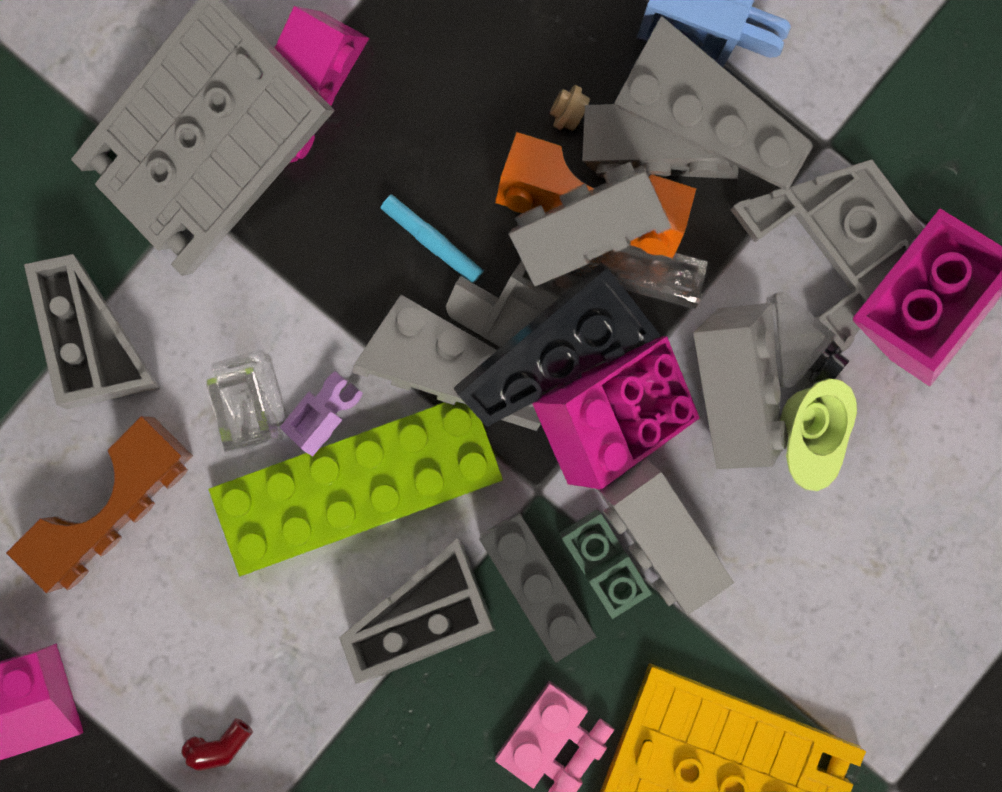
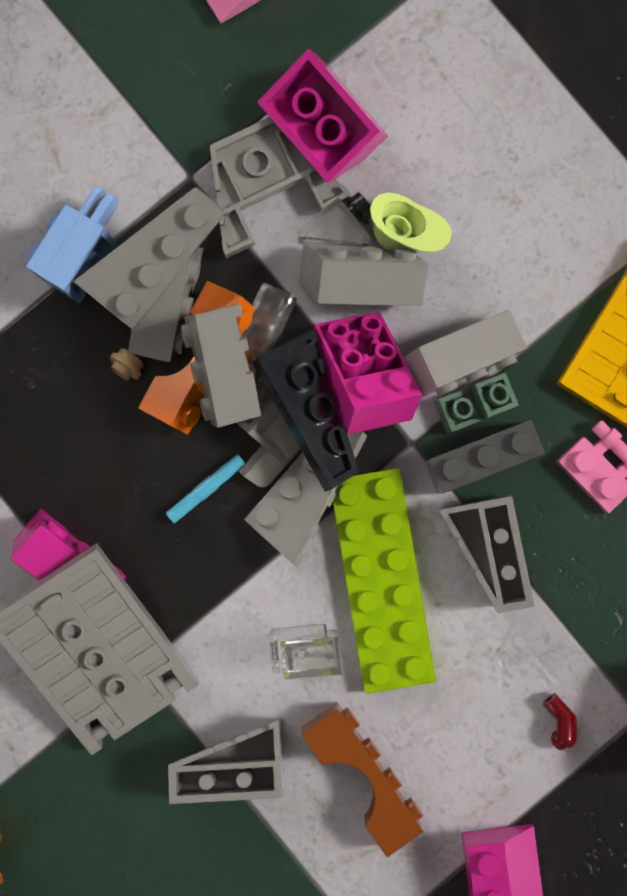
camera: 75 degrees left, 0 degrees up
(316, 416) = (325, 601): lavender plate -> none

